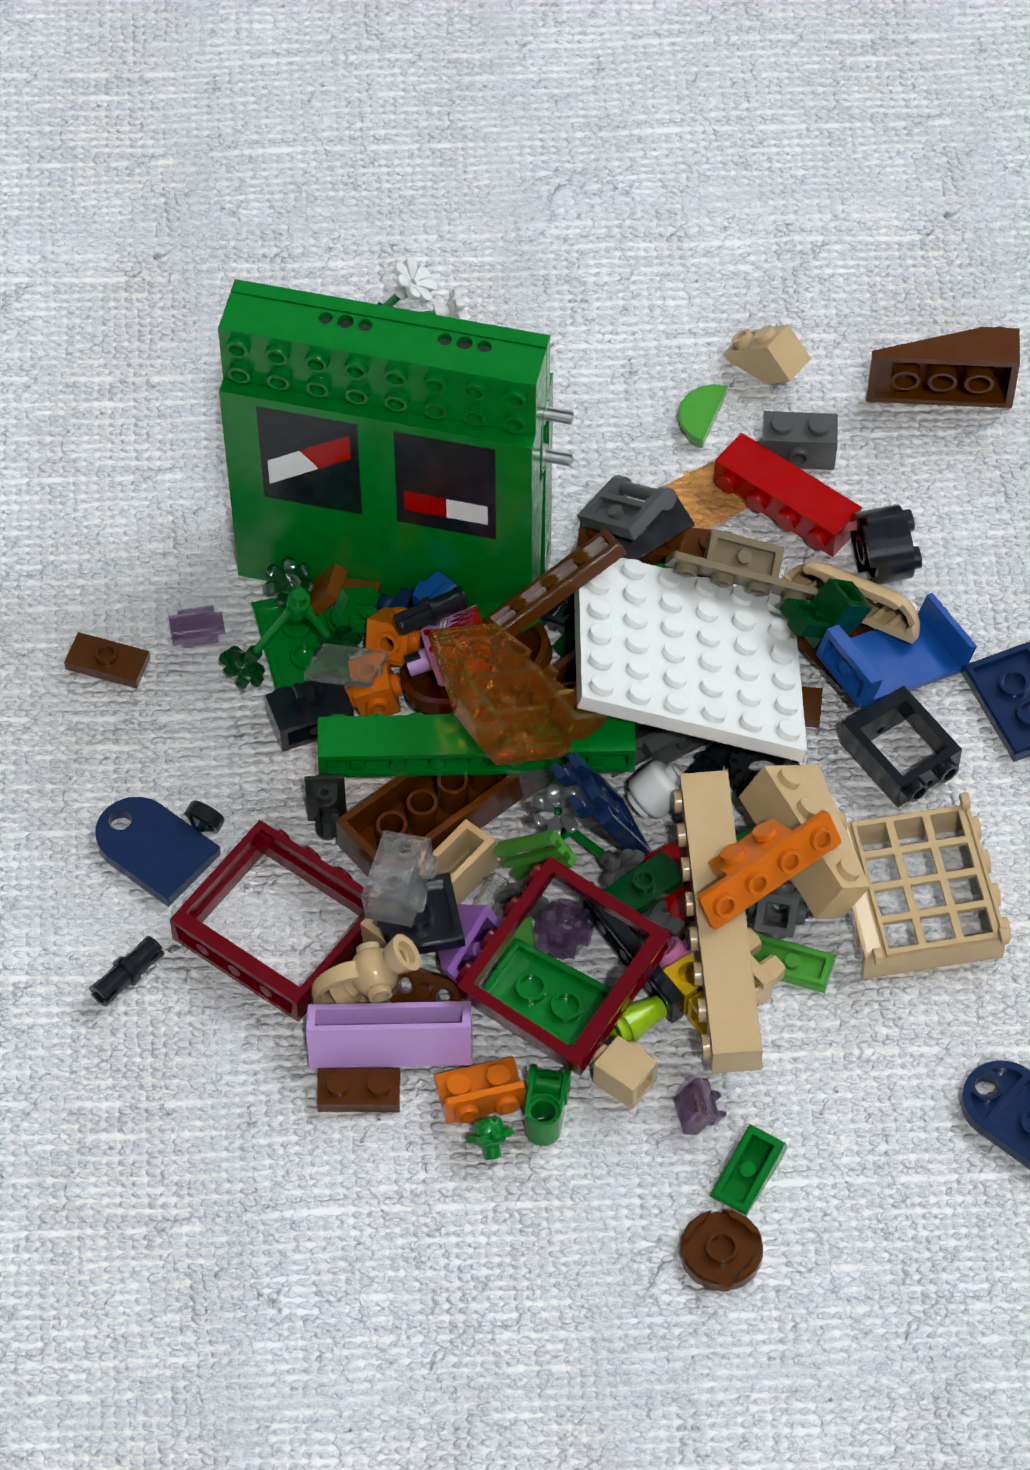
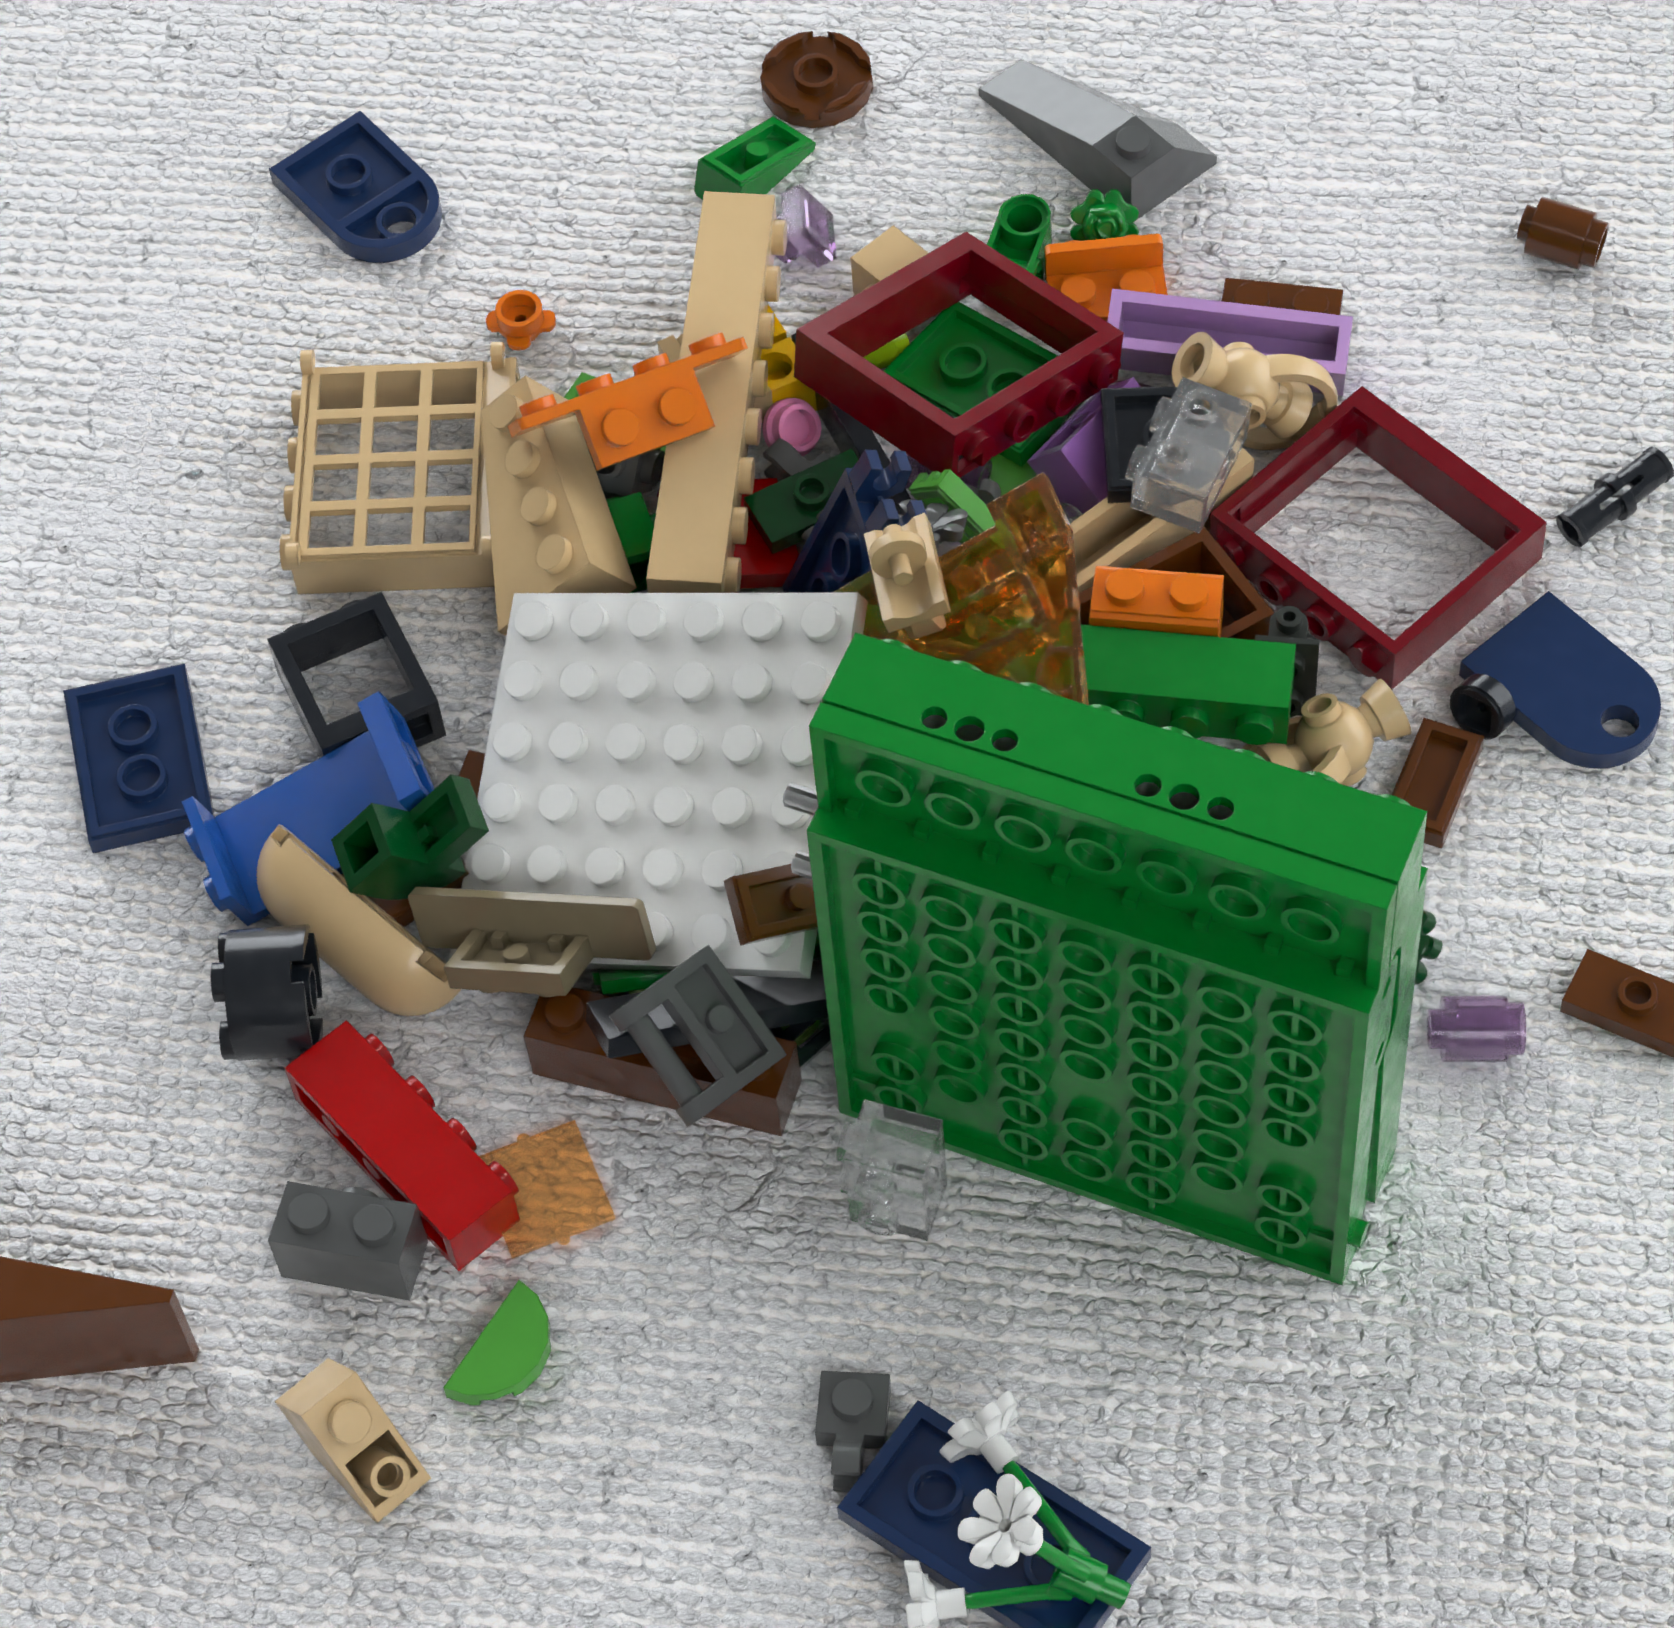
camera: 165 degrees left, 0 degrees up
(168, 1162) = (1562, 233): none -> reddish brown brick
(232, 776) = (1438, 775): none -> reddish brown tile
(286, 770) = (1337, 736): none -> tan piece
(406, 782) = (1157, 600): none -> orange brick
(495, 1211) = (1099, 136): none -> dark grey wedge
(554, 706) = (908, 577): none -> tan hips
(878, 1011) = (520, 318): none -> orange plate

